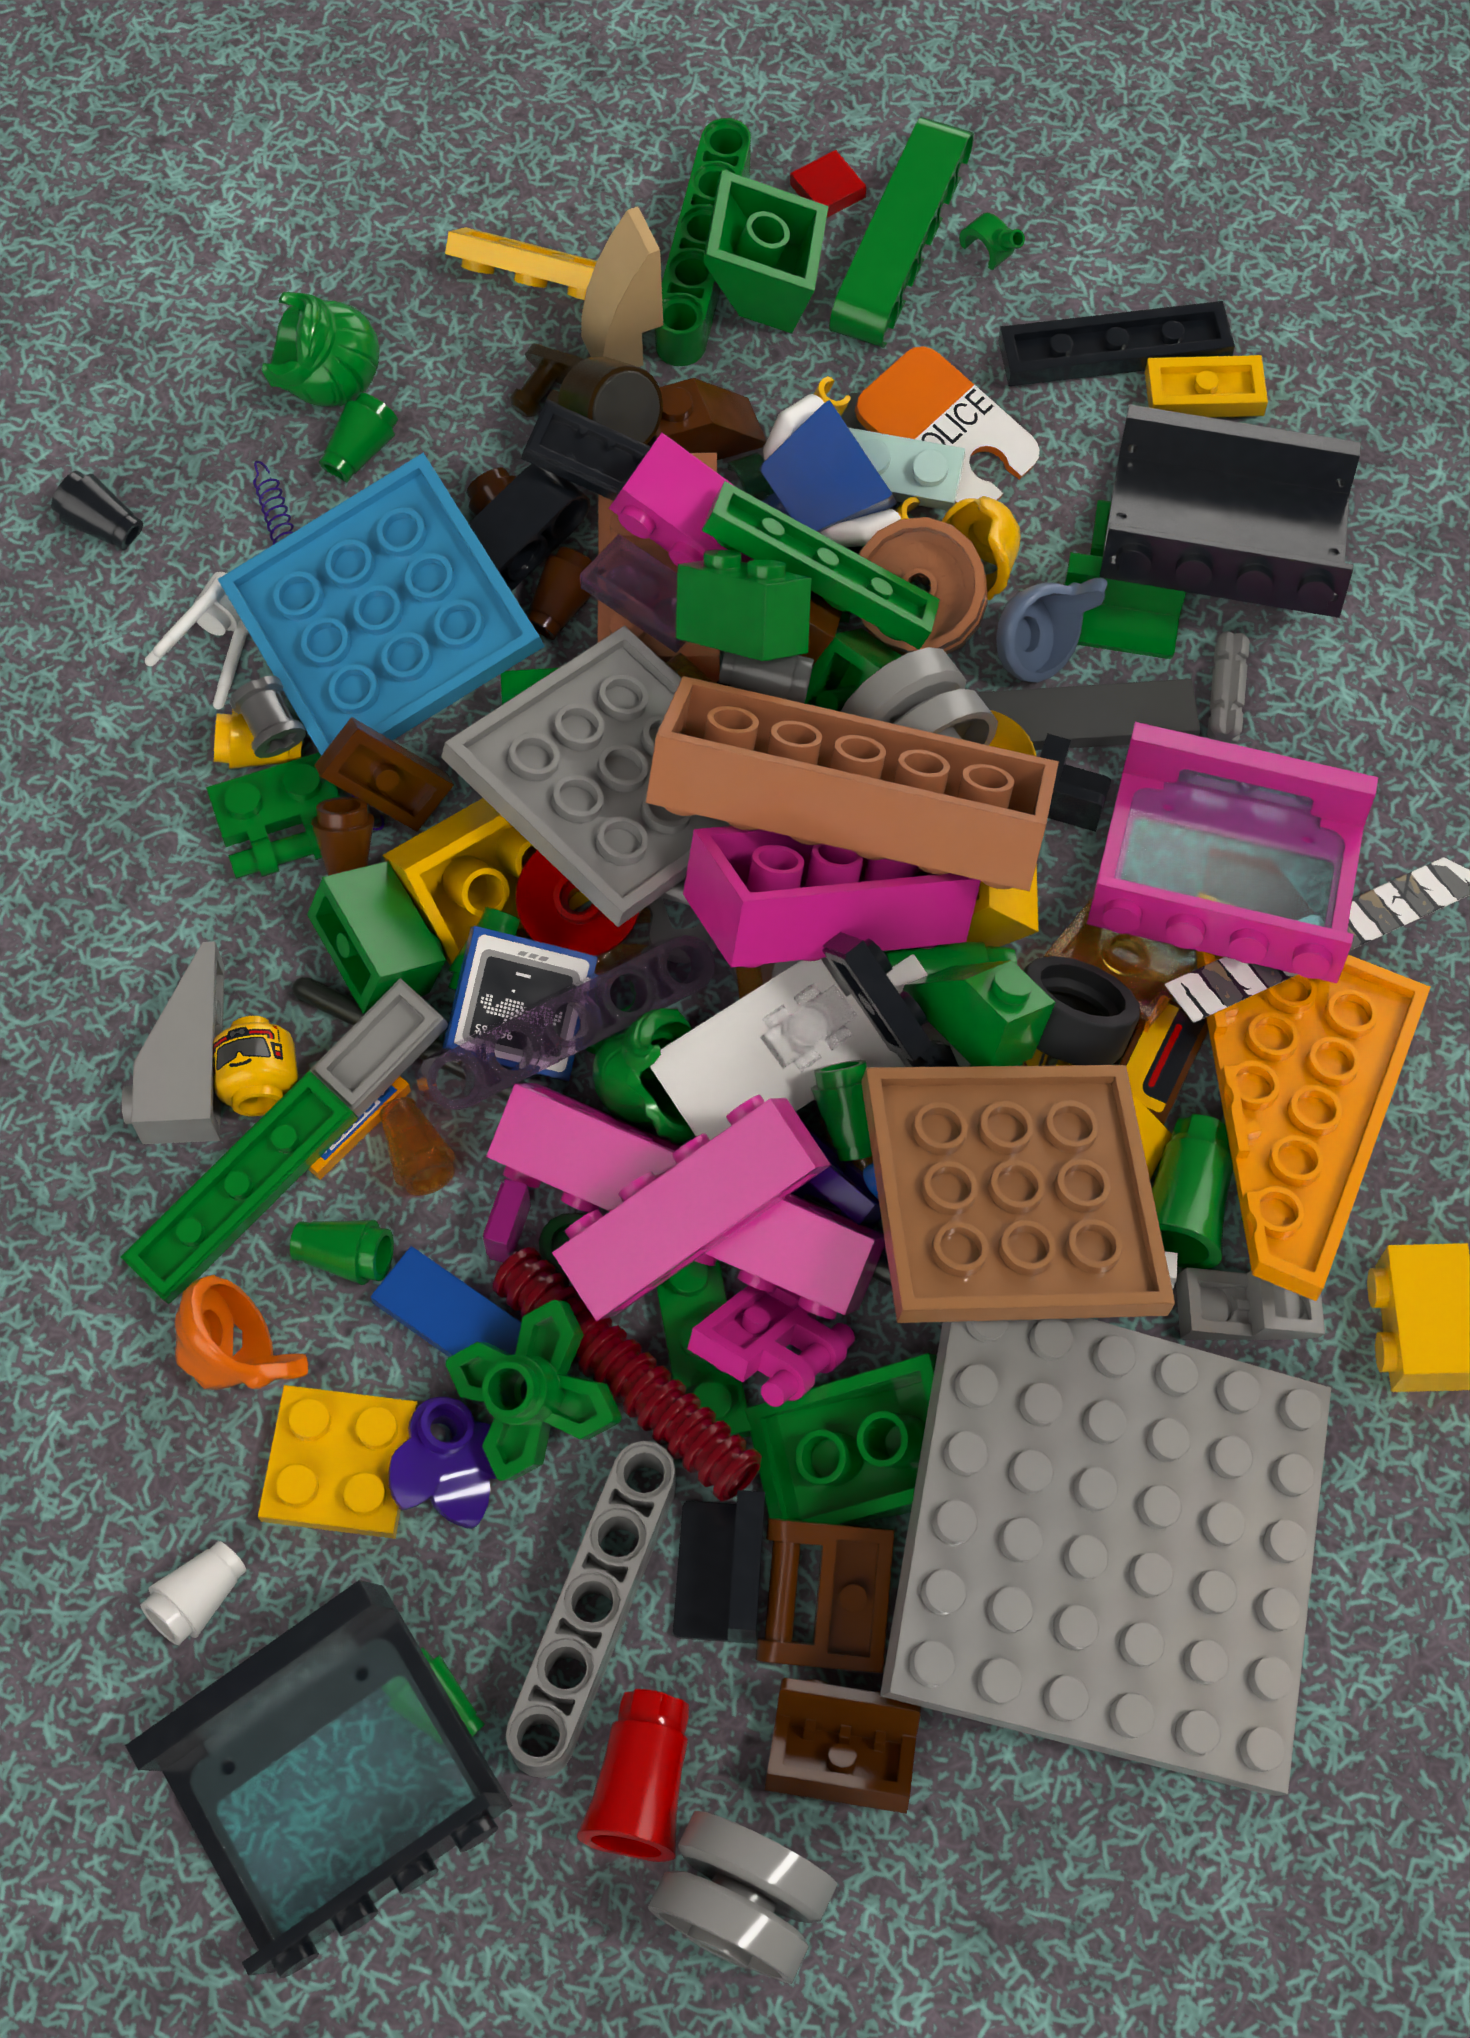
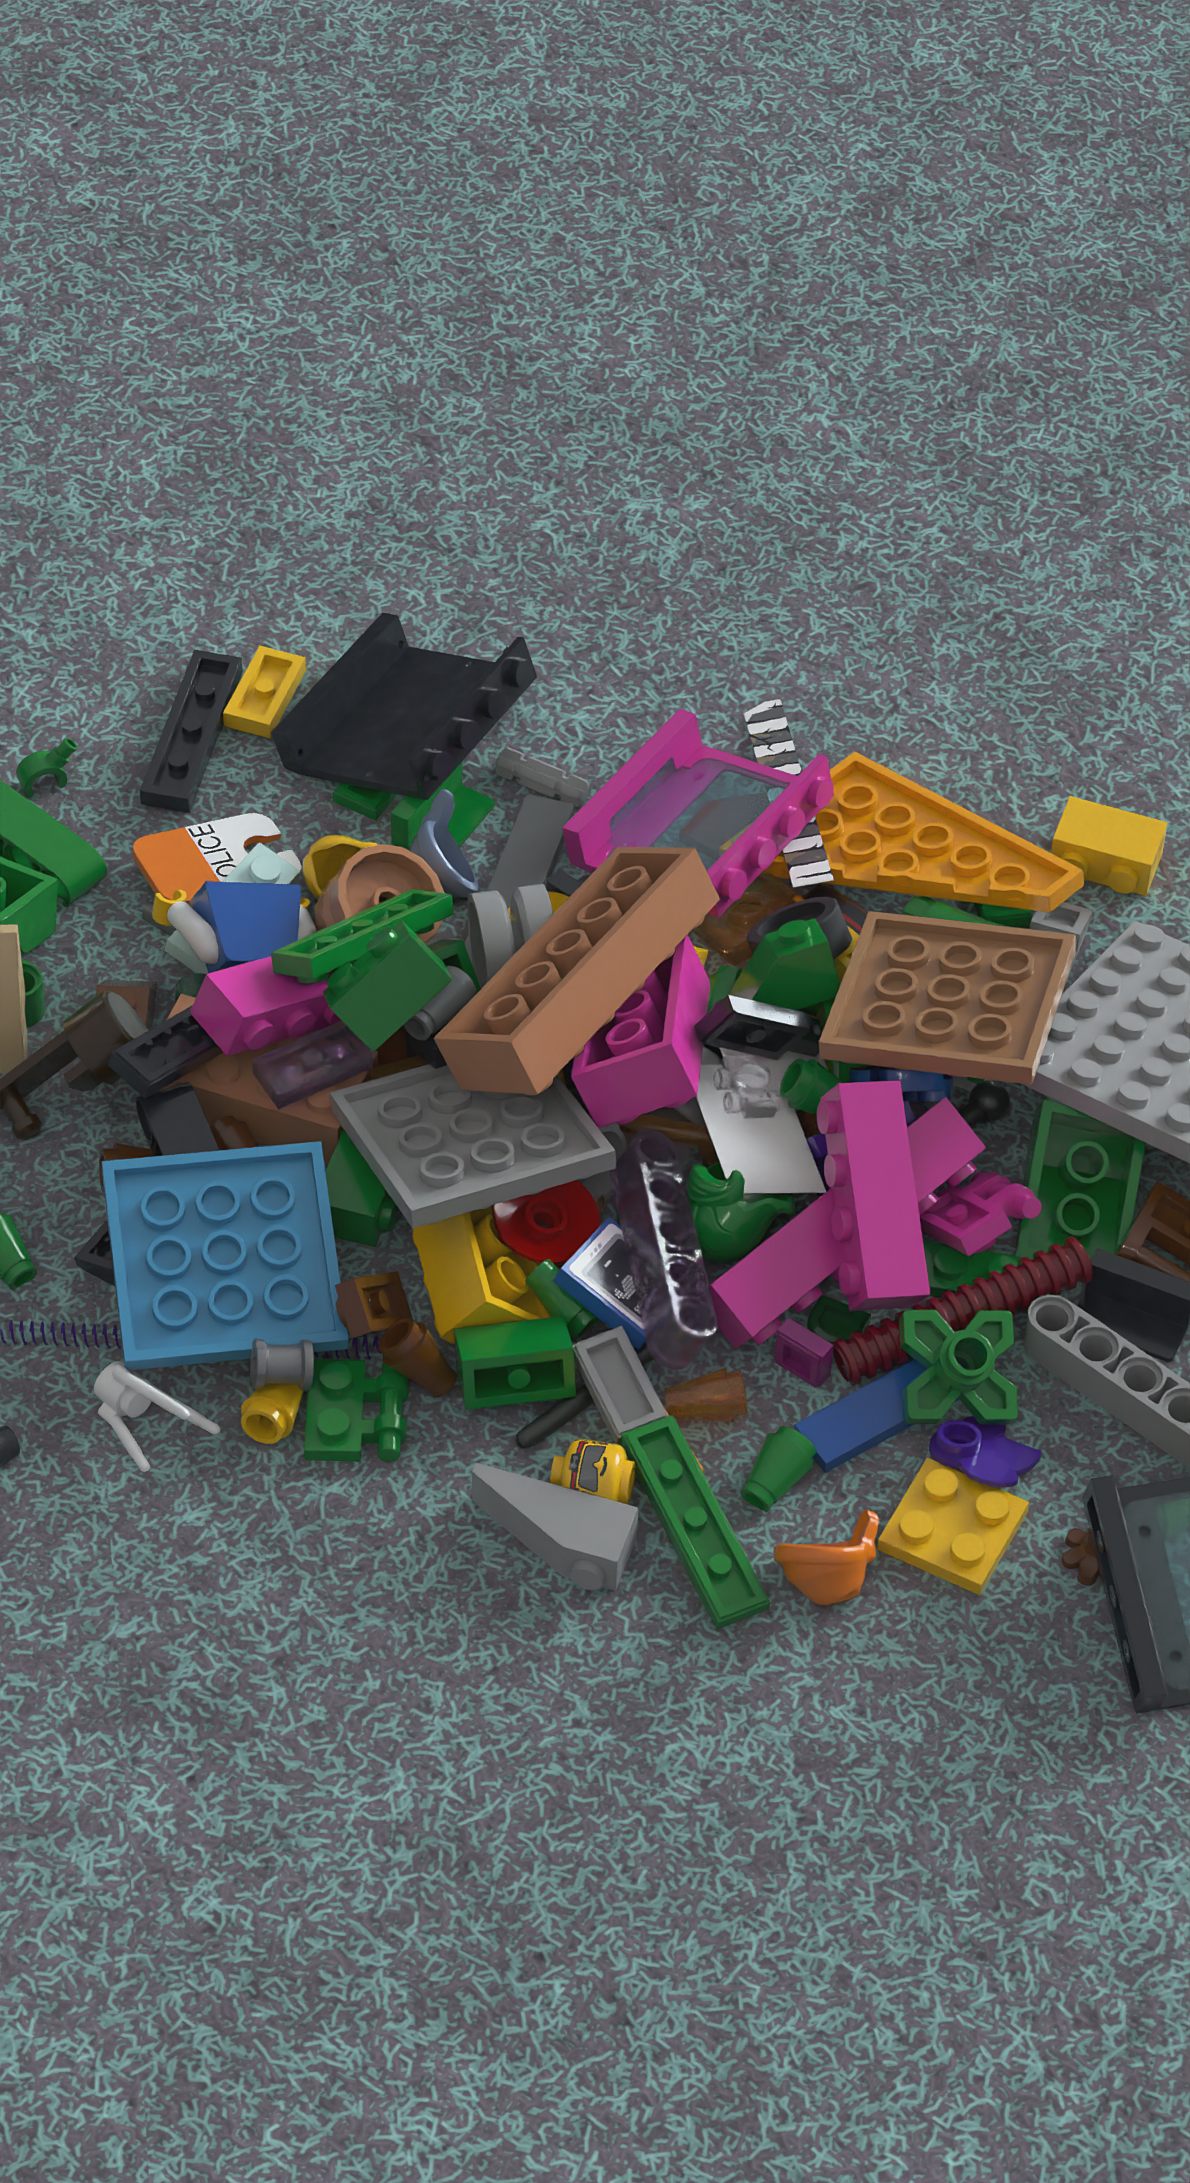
camera: 70 degrees left, 15 degrees down
(192, 1593) = (1029, 1644): white cone -> none

